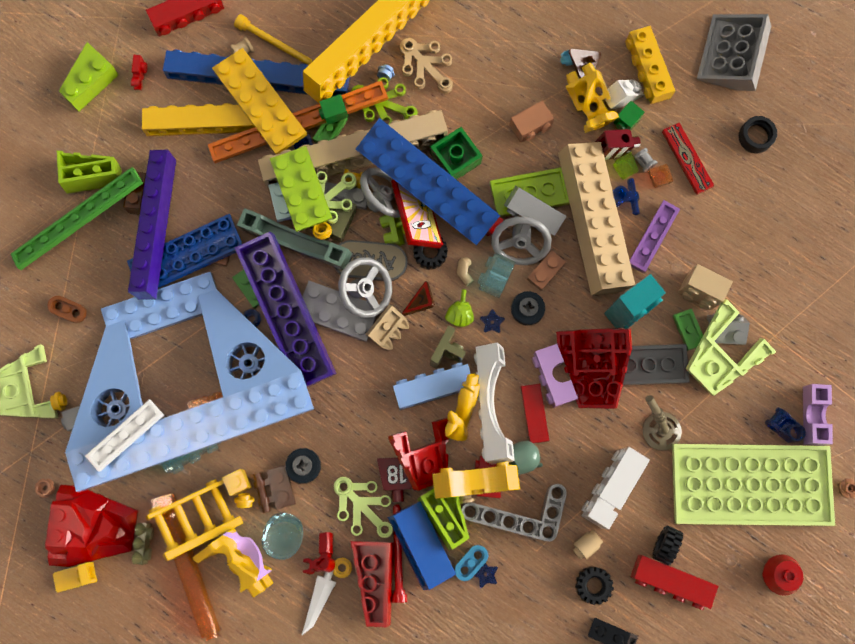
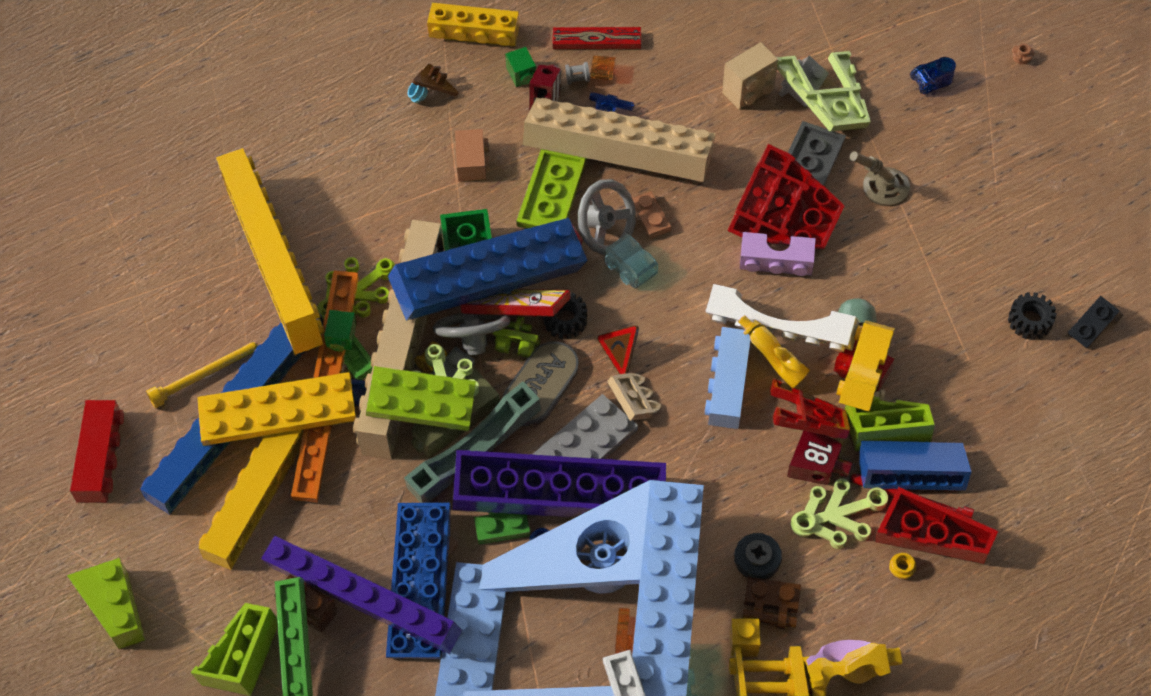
camera: 60 degrees left, 20 degrees down
(139, 67) = (139, 537): red plate -> none
(244, 500) = (770, 641): yellow plate -> none
(245, 44) = (189, 408): tan bush -> none
(279, 203) = (418, 436): light aqua plate -> none
(282, 536) = (834, 611): clear light blue piece -> none
(321, 592) = (923, 602): white bar -> none
(323, 226) = (479, 400): yellow plate -> none
(324, 562) = (890, 578): red bar -> none
(364, 287) = (574, 393): light grey piece -> none
(385, 71) = (319, 270): light blue plate -> none
(425, 62) = (335, 229): tan plant -> none
(452, 351) = (694, 340): olive bracket -> none
(460, 312) = (653, 316): lime piece -> none
(462, 270) = (607, 294): tan arm -> none
(471, 563) = (957, 426): dark azure plate -> none
(483, 580) = (979, 415): clear blue plate -> none
(492, 317) = (681, 285): clear blue plate -> none
(519, 520) = (940, 339): light grey beam -> none
(523, 312) = (688, 256): black wheel -> none
(529, 206) = (566, 193): light grey brick -> none
(534, 413) = (808, 293): red tile -> none
(587, 87) = (465, 85): yellow hips -> none
(587, 545) = (984, 302): tan brick -> none
(615, 487) = (925, 241): white piece -> none
(623, 92) = (490, 60): white slope -> none
(626, 166) = (573, 93): clear neon green slope -> none
(635, 303) = (739, 133): teal brick -> none
(653, 236) = (665, 98): medium lavender plate -> none
(667, 545) = (1017, 225): black tyre -> none
(674, 581) = (1058, 240): red brick -> none
(688, 328) = (786, 113): bright green plate -> none
(752, 484) = (982, 131): yellowish green plate -> none
(783, 575) = (1091, 142): red cone -> none
(815, 402) = (919, 39): lavender arch -> none

